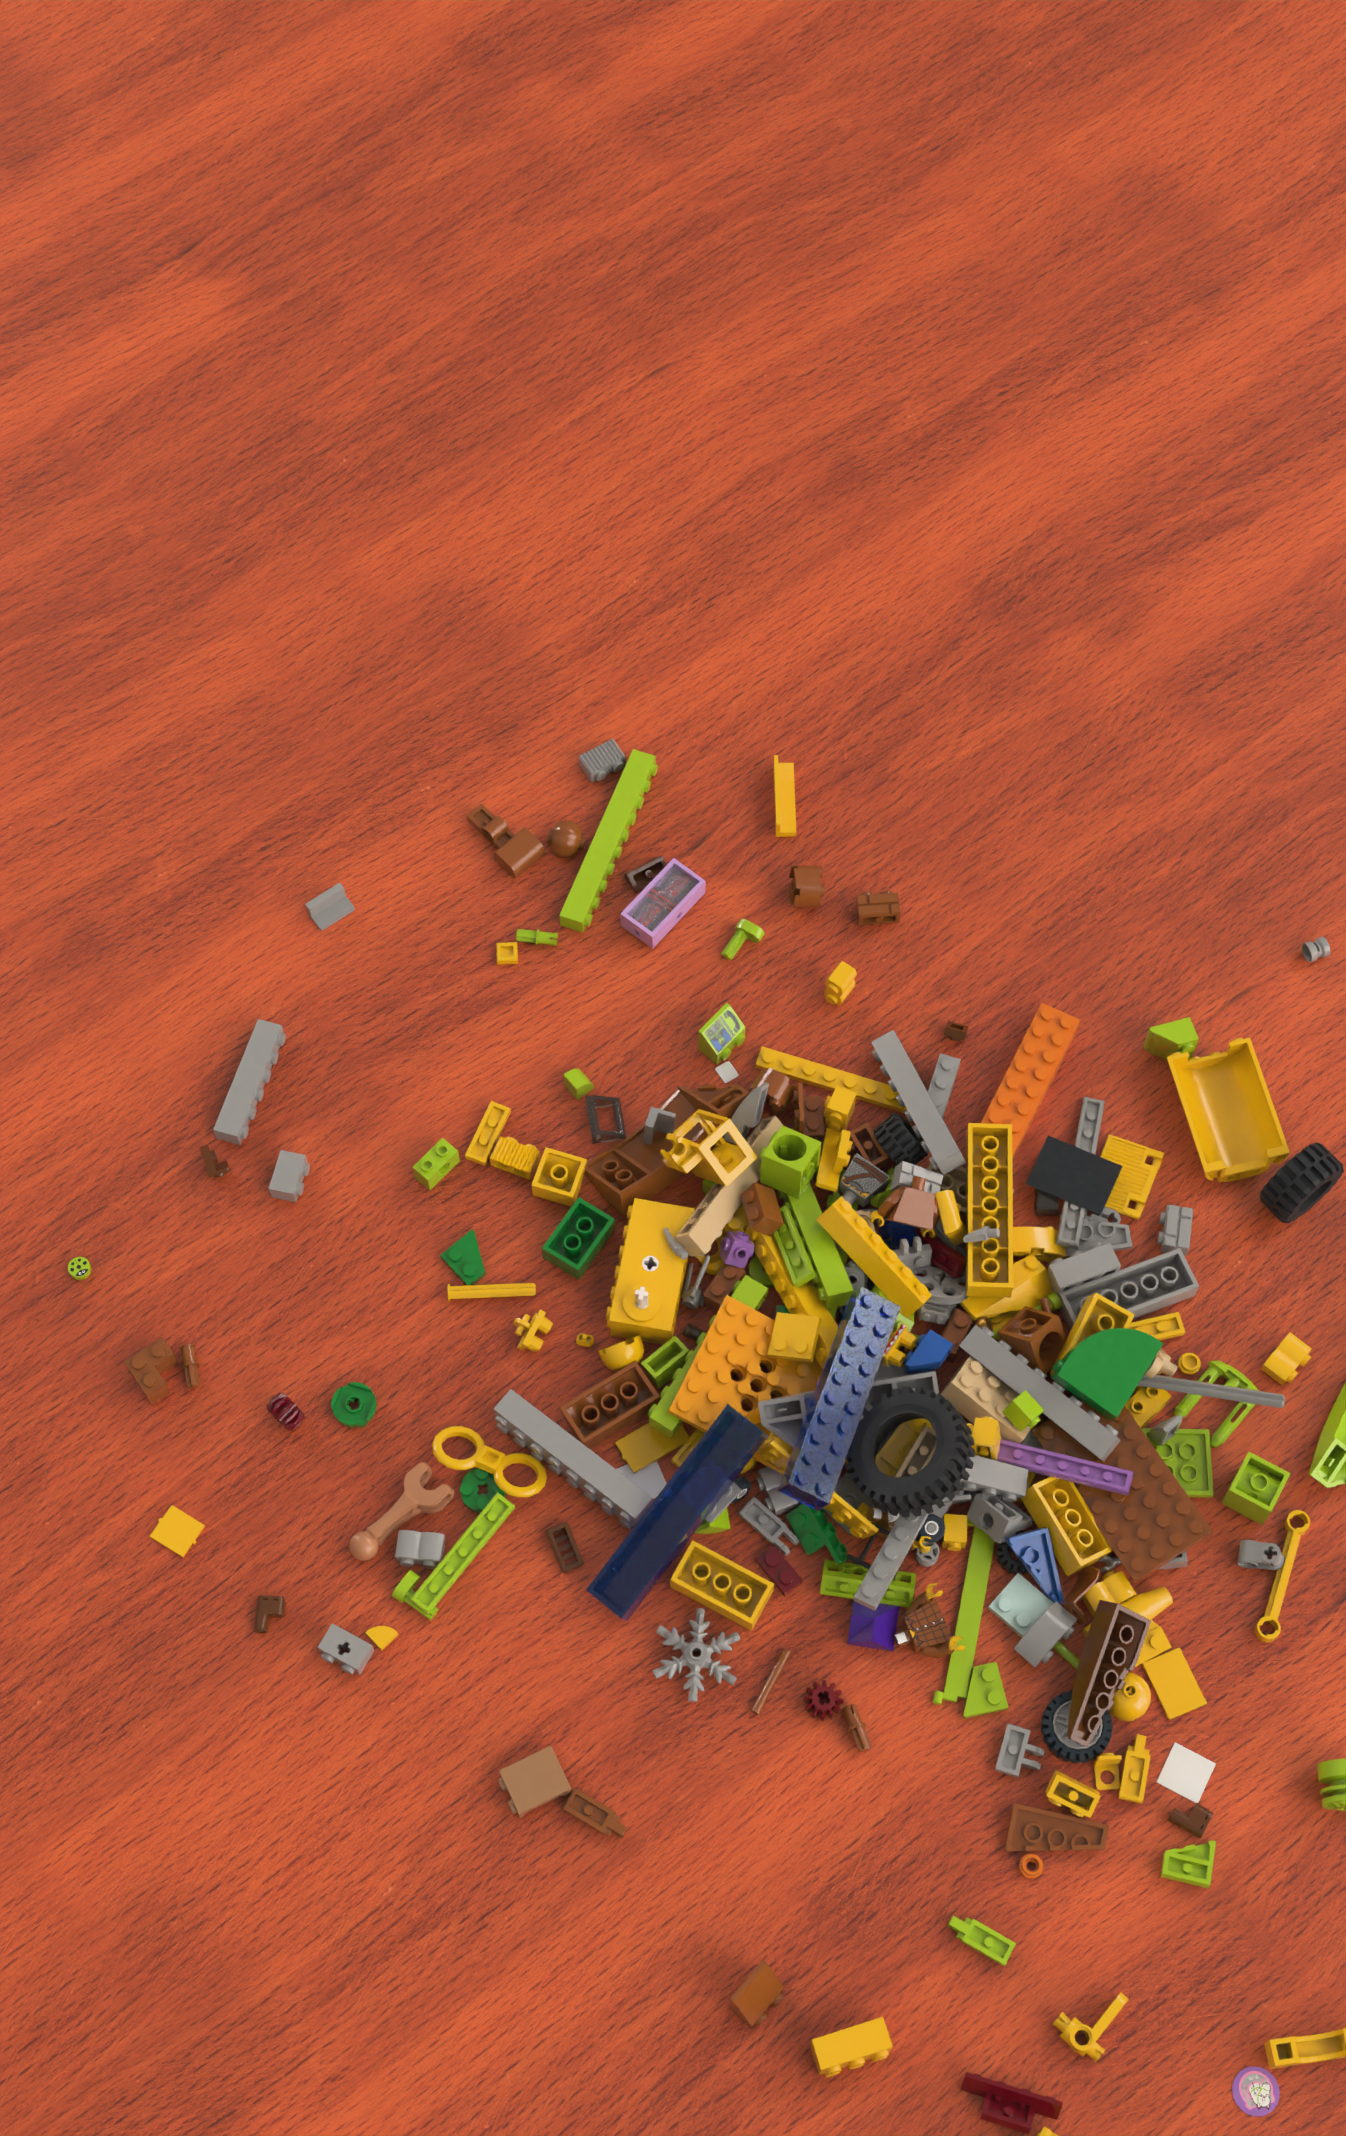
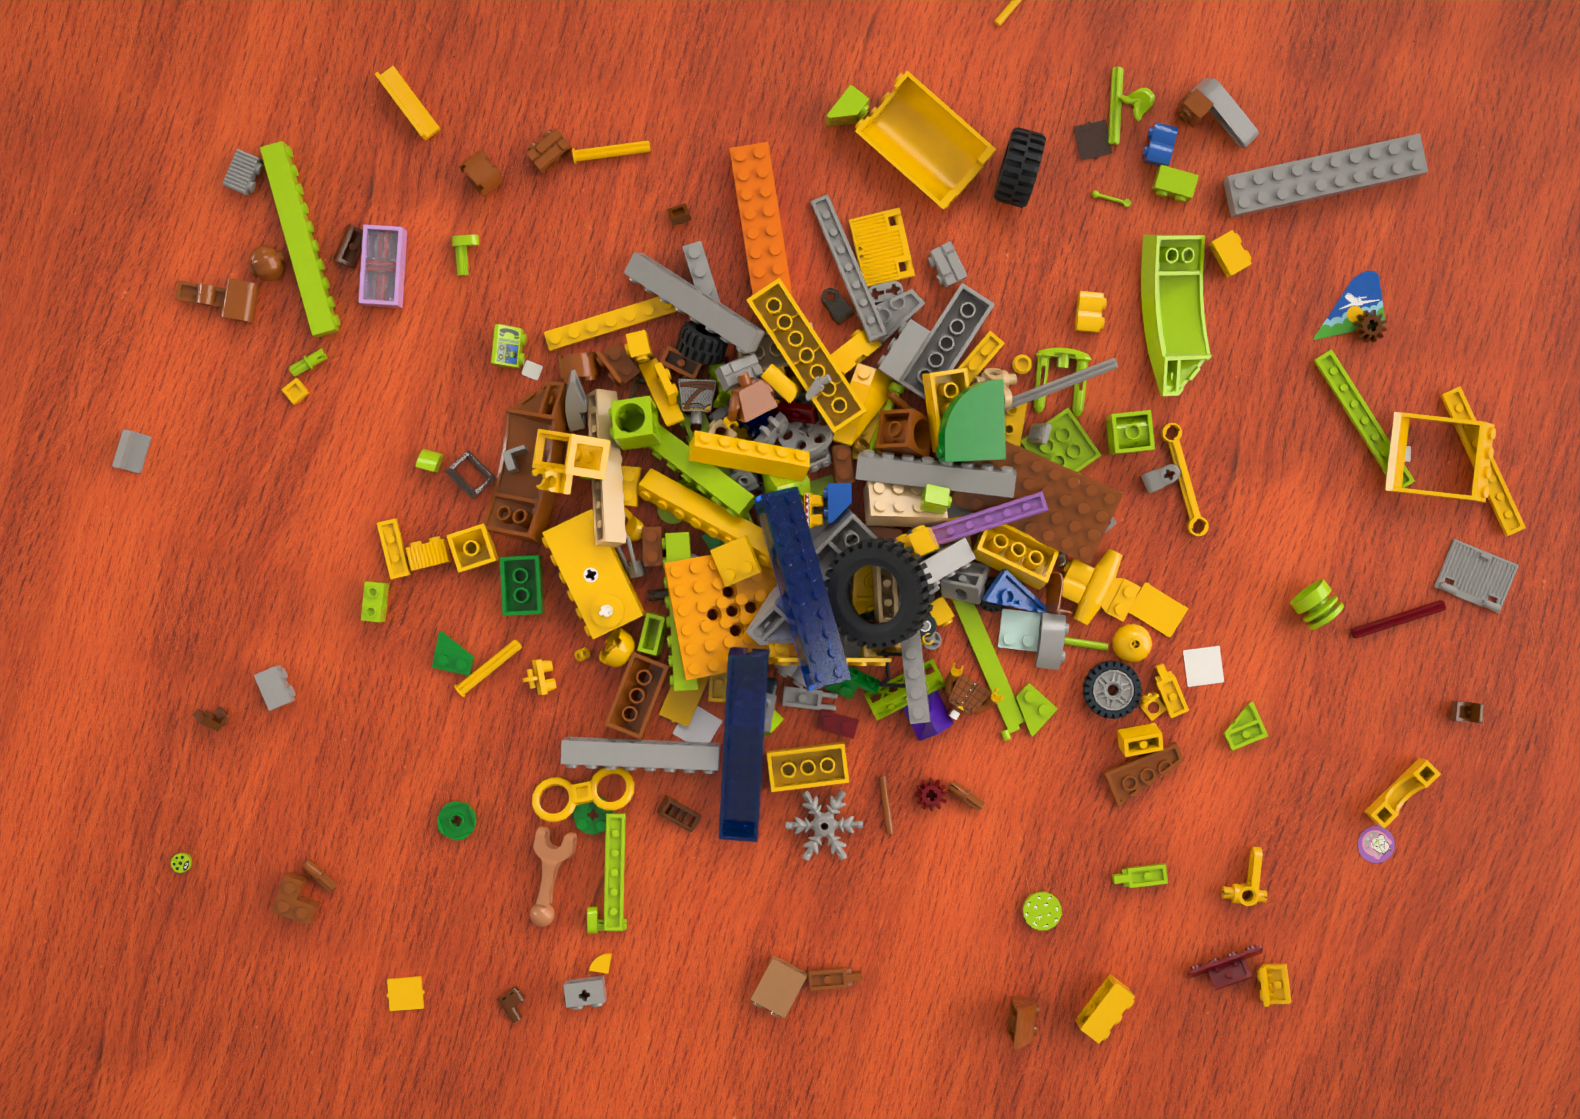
camera: 35 degrees left, 25 degrees up
(249, 1082) = (186, 635): light grey brick -> none
(285, 1411) = (413, 862): dark red gear -> none
(420, 1548) = (582, 887): light grey brick -> none
(675, 1246) = (603, 551): light grey helmet -> none
(736, 1249) = (643, 515): medium lavender brick -> none
(762, 1209) = (641, 475): dark orange brick -> none
(793, 1250) = (683, 488): lime plate -> none
(840, 983) = (566, 240): yellow brick -> none
(854, 1901) = (1042, 910): none -> lime tile
(932, 943) = (610, 151): none -> yellow axle
(1013, 1751) = (1080, 736): light grey hinge -> none
(1036, 1860) = (1148, 804): orange plate -> none
(1074, 1175) = (846, 276): black sticker -> none
(1105, 1660) = (1104, 630): reddish brown wedge -> none
(1195, 1822) = (1231, 697): reddish brown piece -> none

